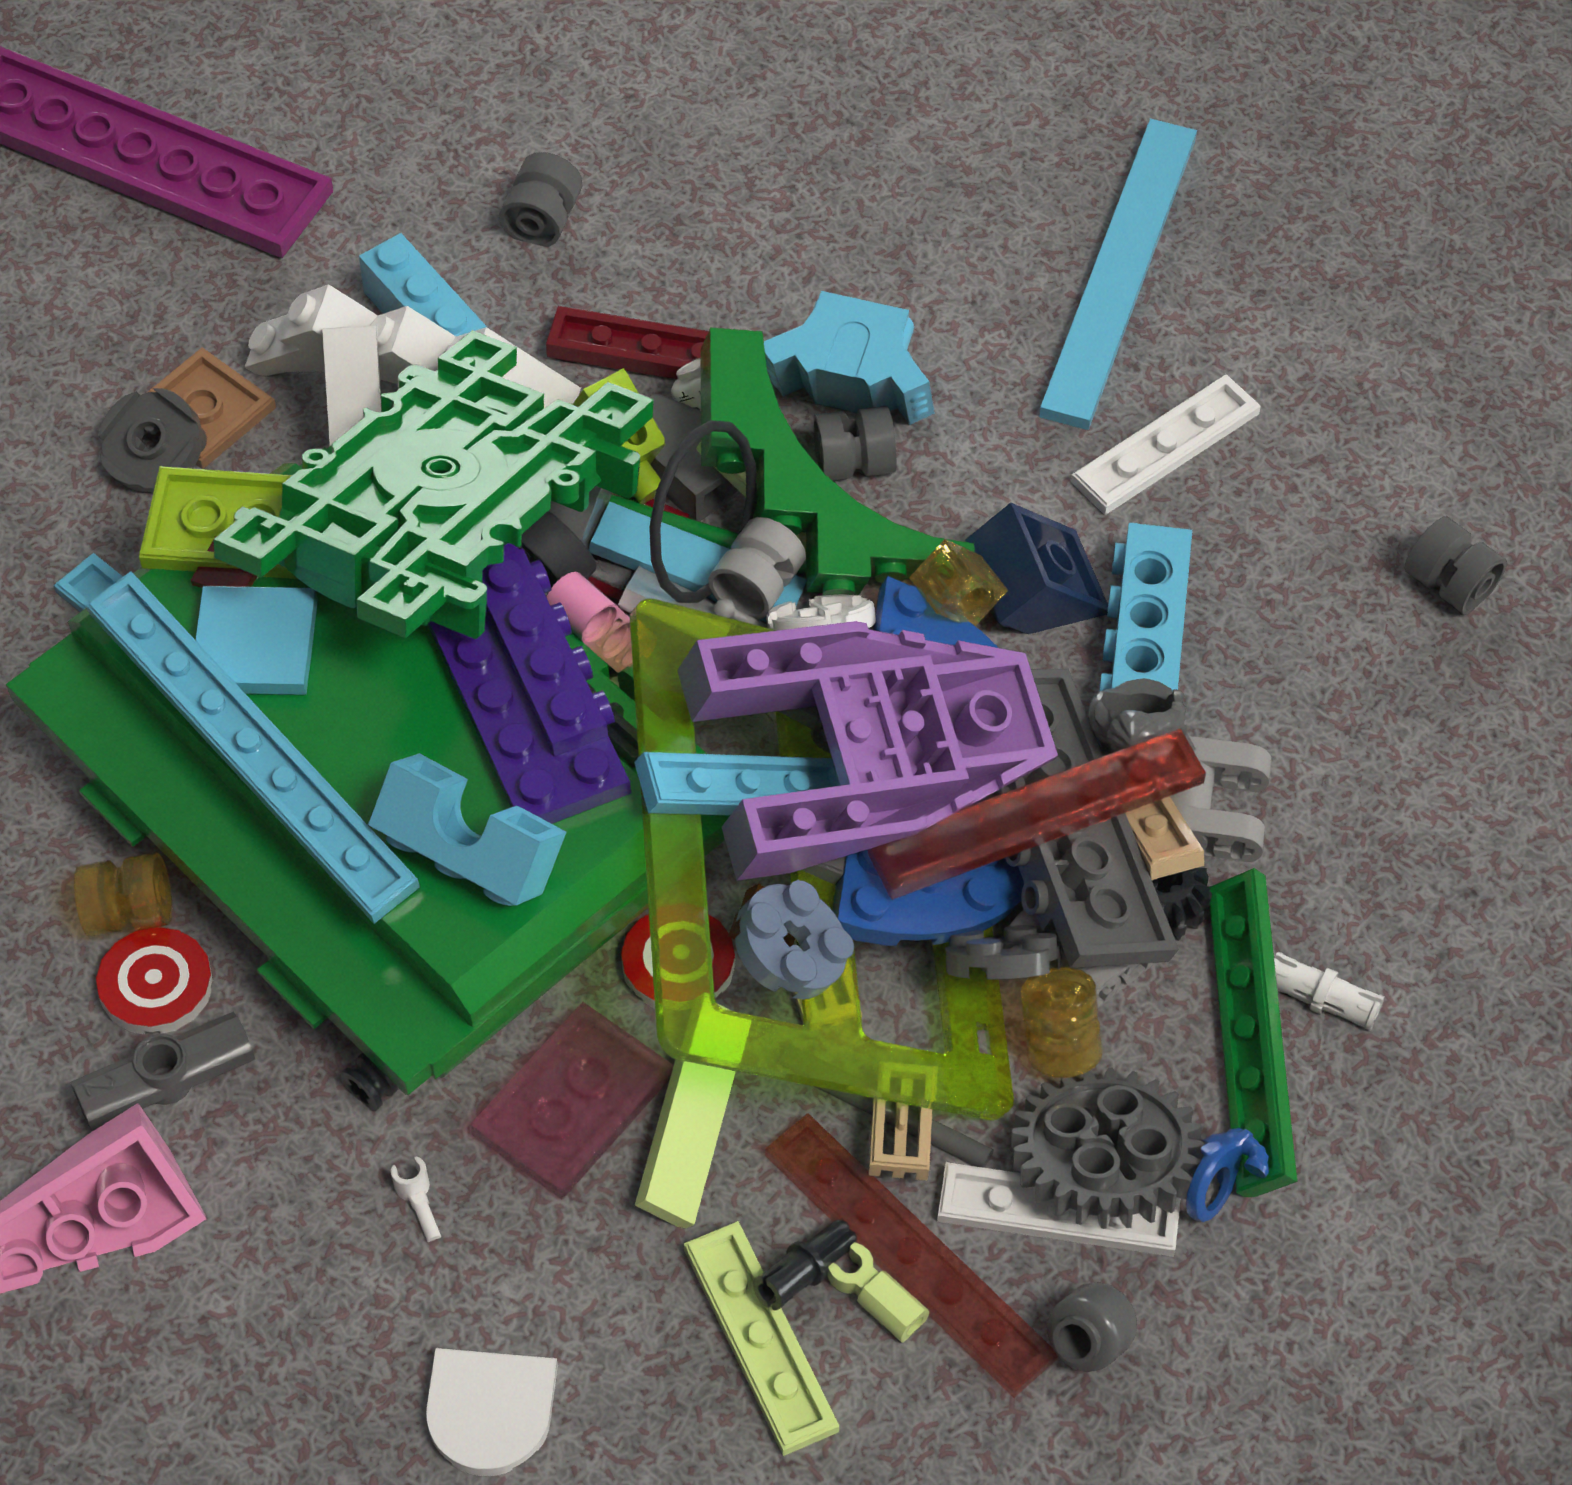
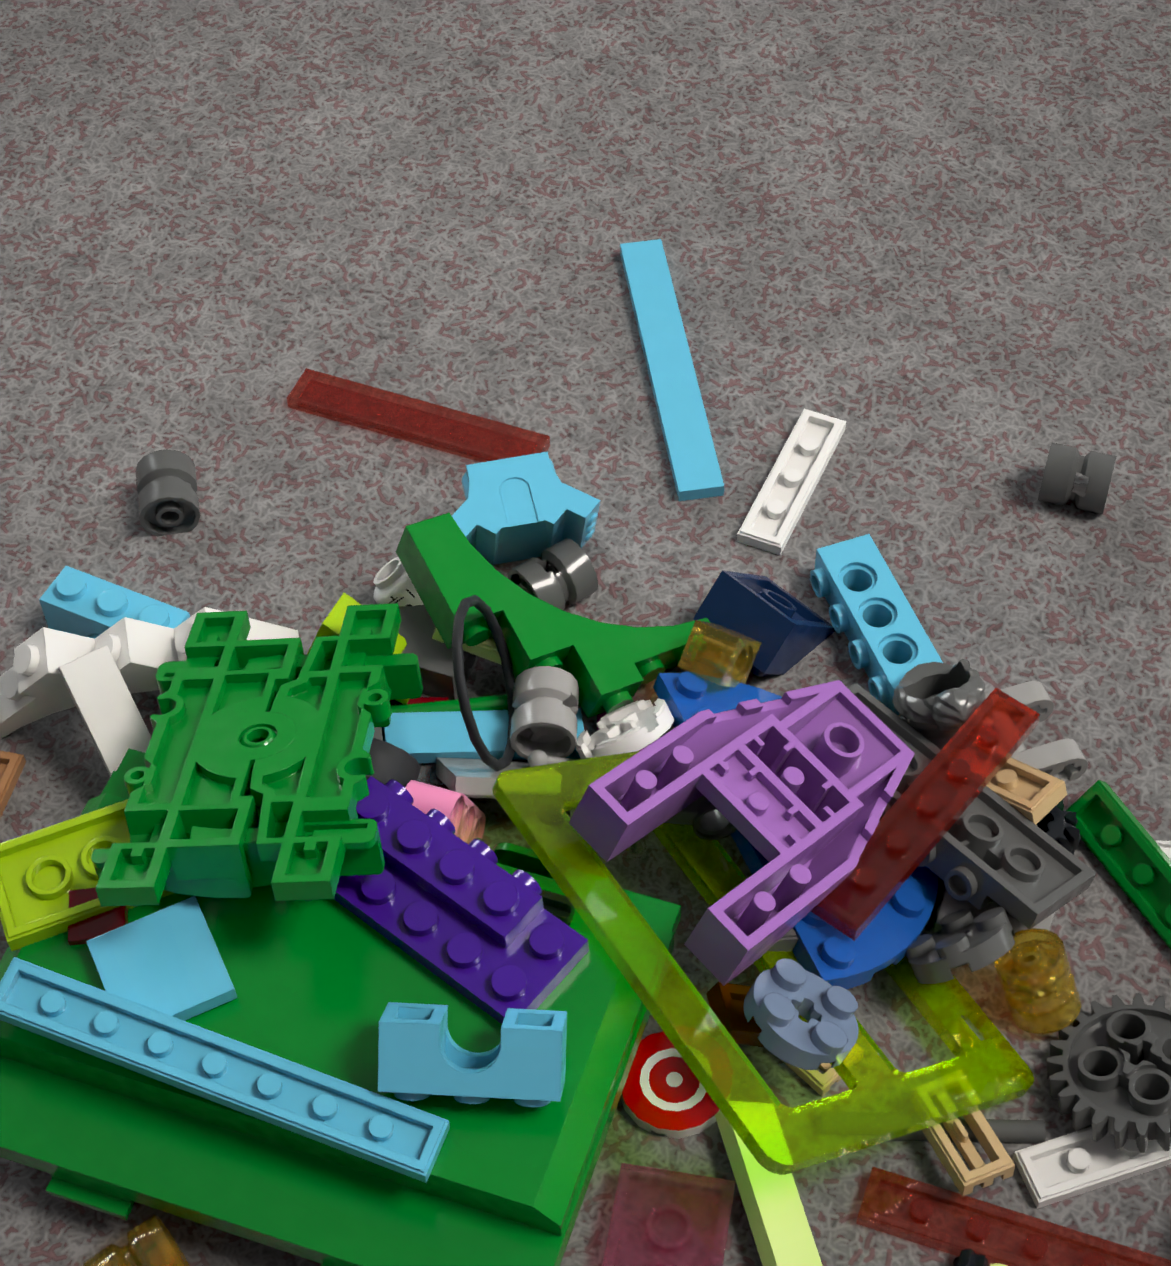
camera: 25 degrees left, 5 degrees down
(622, 342) = (313, 578): dark red plate -> none
(719, 782) = (669, 900): medium azure tile -> none
(829, 225) = (412, 419): none -> clear red tile

